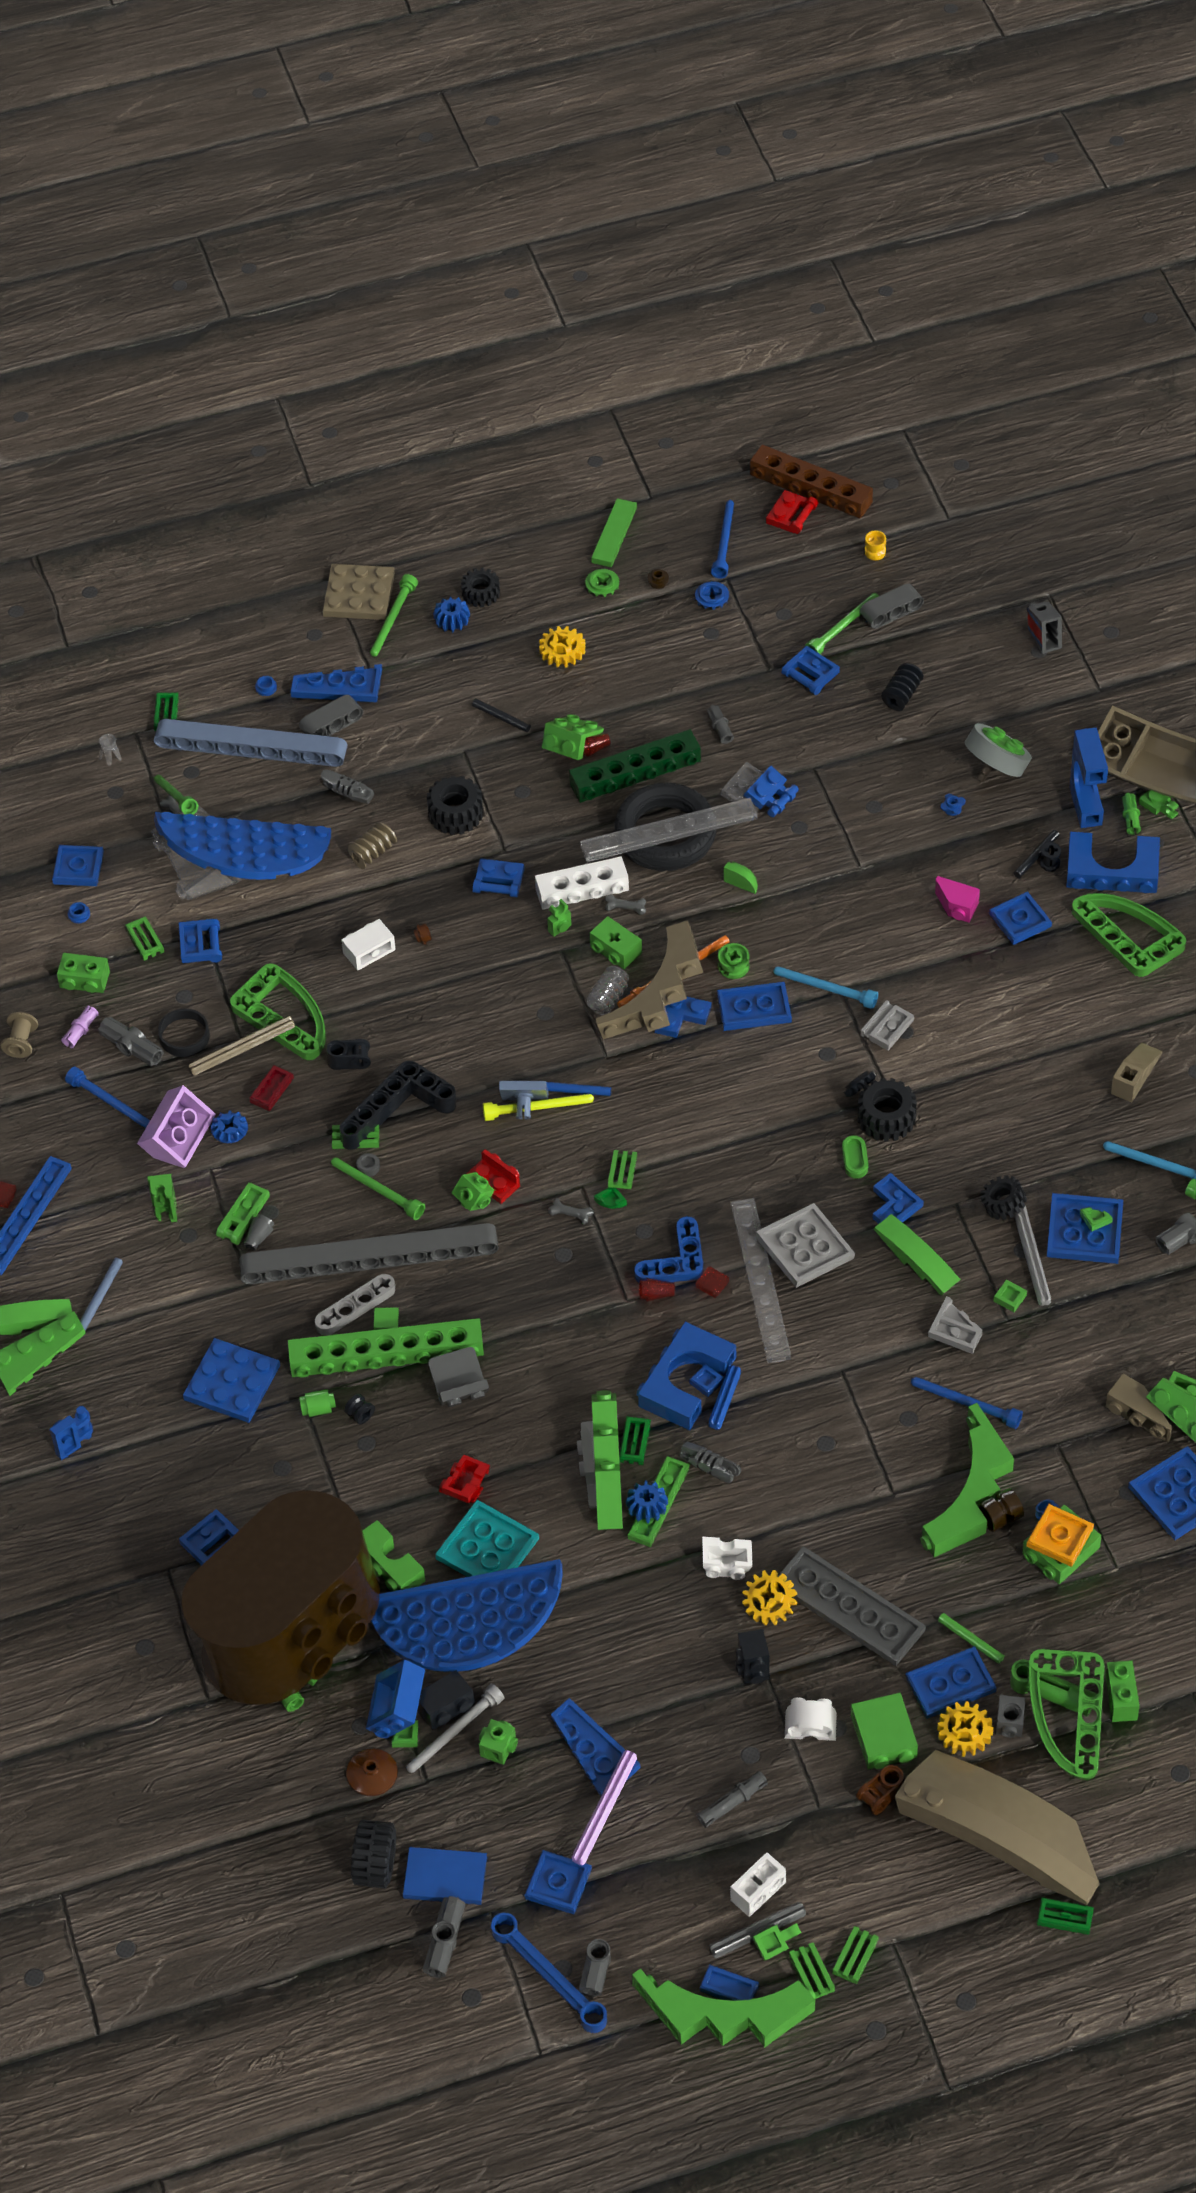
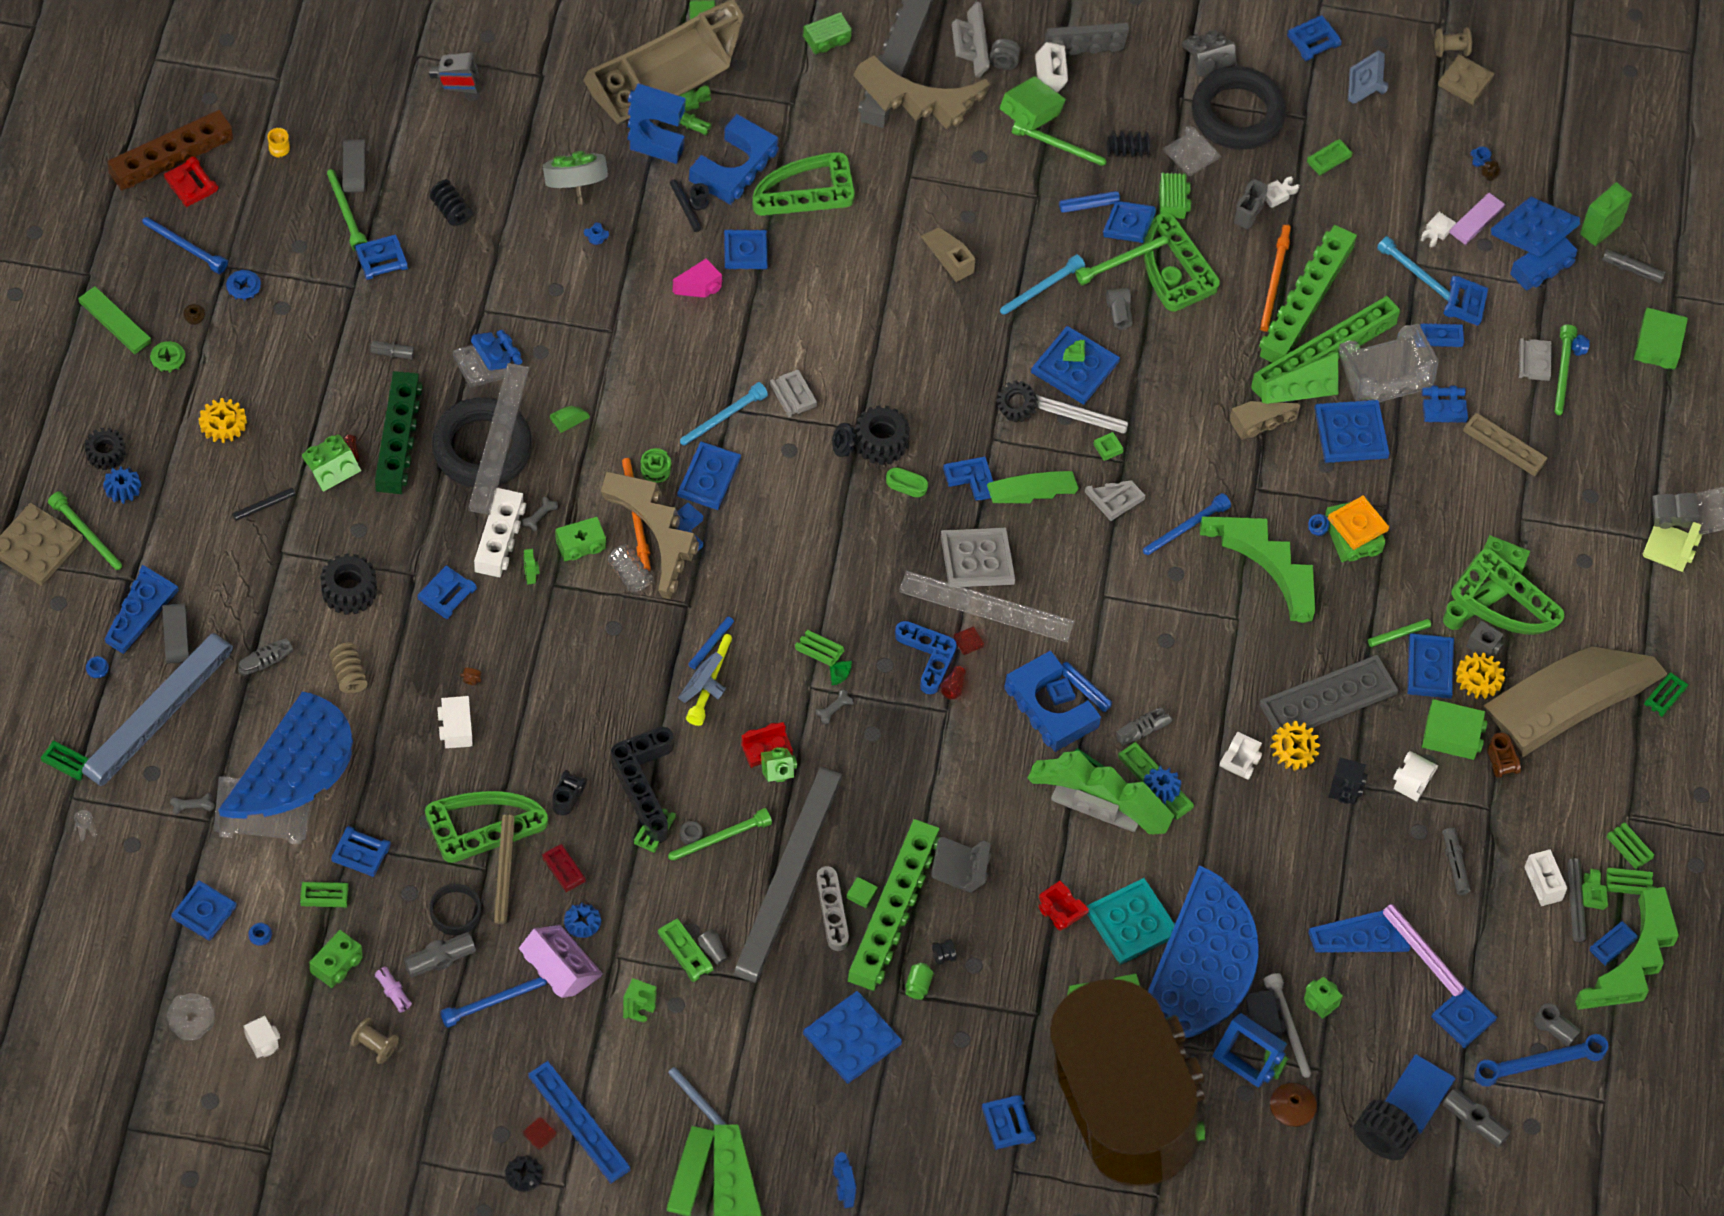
camera: 70 degrees left, 5 degrees up
(186, 803) = (224, 781): bright green piece -> none
(1002, 1509) = (1303, 549): dark brown wheel -> none

